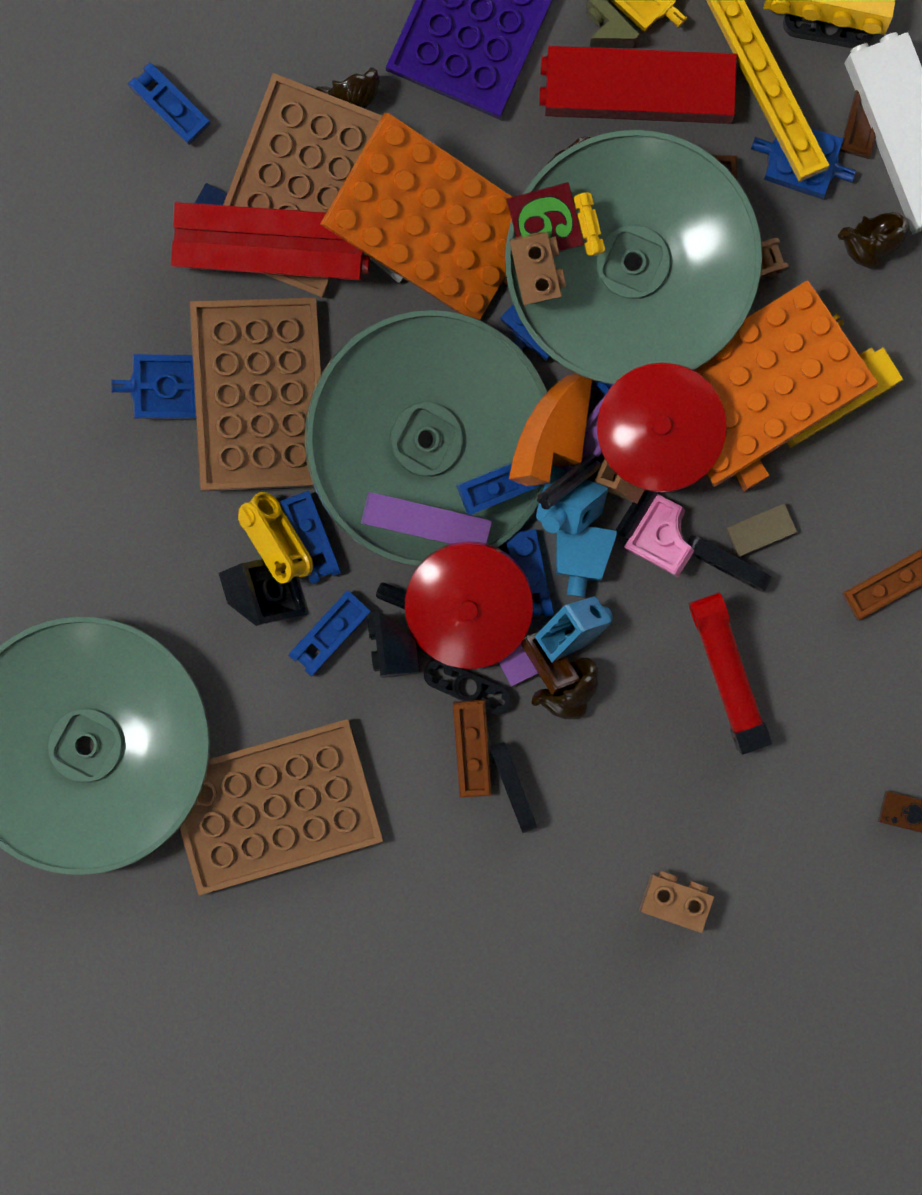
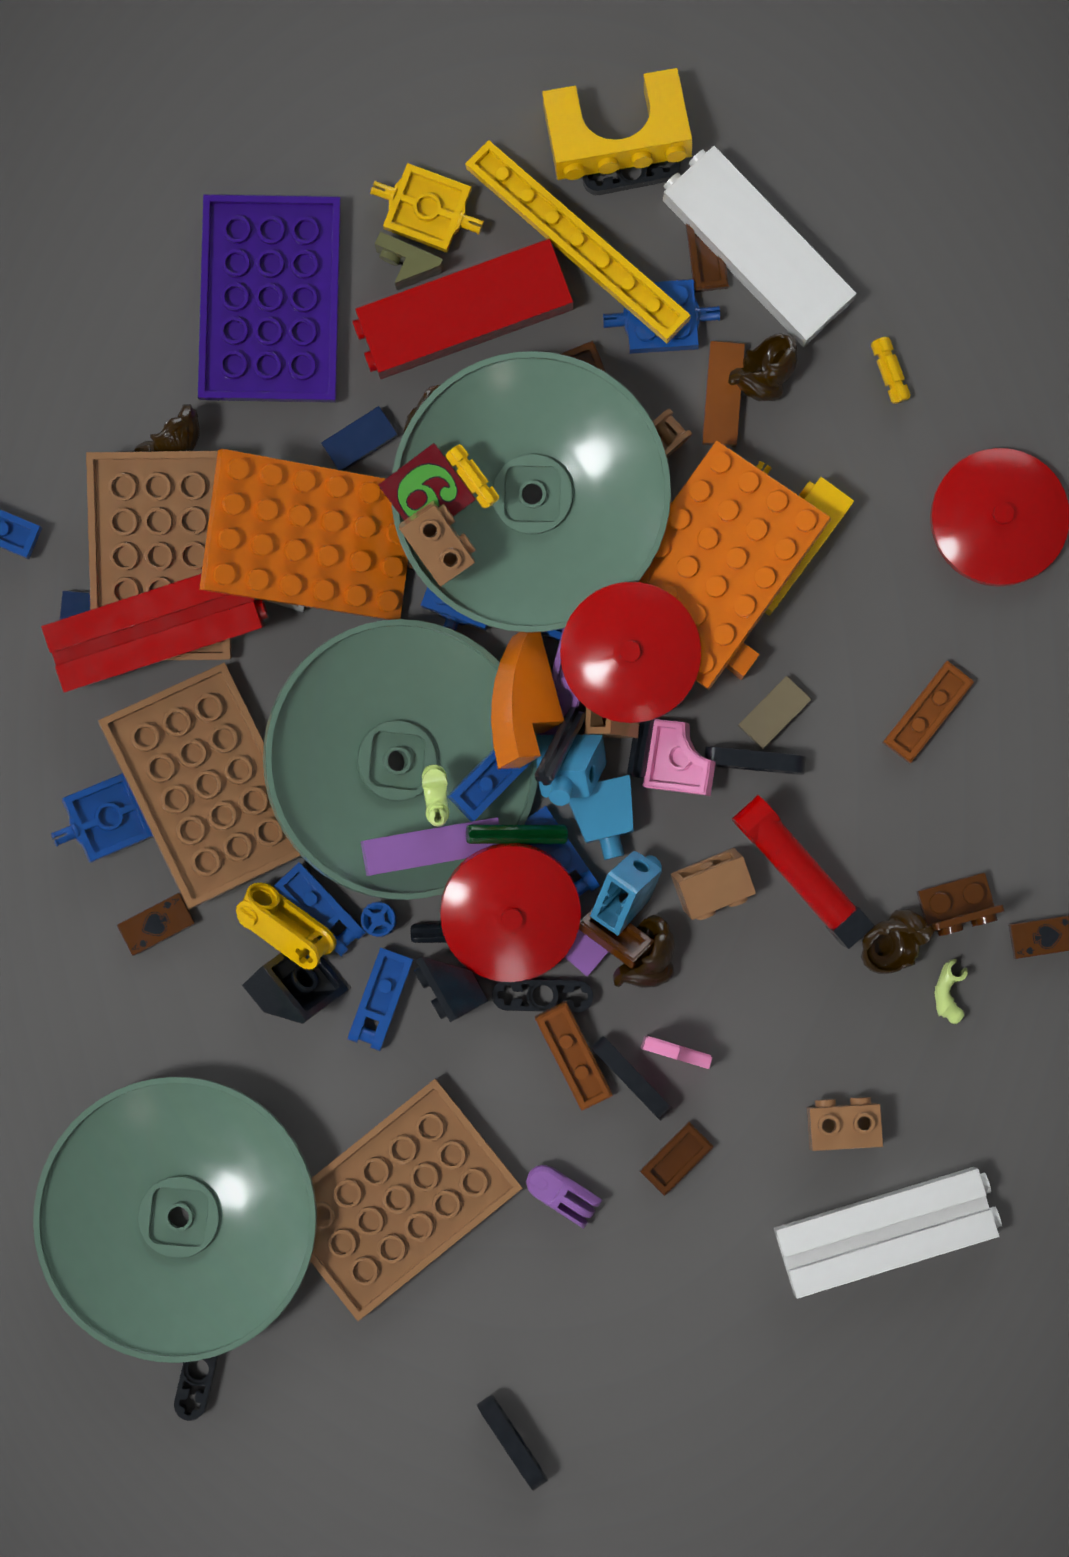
camera: 20 degrees left, 0 degrees up
(41, 904) = (201, 1396): none -> black beam
(168, 493) = (156, 924): none -> reddish brown tile
(286, 1051) = (512, 1442): none -> black beam
(353, 561) = (374, 916): none -> blue wheel
(414, 860) = (562, 1194): none -> medium lavender arm
(447, 479) = (435, 792): none -> yellowish green piece
(501, 541) = (516, 834): none -> dark green axle
(507, 158) = (359, 439): none -> dark blue tile
(523, 871) = (676, 1158): none -> reddish brown tile
(560, 780) = (676, 1052): none -> bright pink tile
(650, 653) = (713, 884): none -> medium nougat brick
(676, 1007) = (887, 1231): none -> white brick
(783, 765) = (895, 942): none -> dark brown hair
(804, 830) = (944, 1001): none -> yellowish green piece
(826, 246) = (722, 399): none -> dark orange tile
(848, 753) = (958, 902): none -> reddish brown bracket

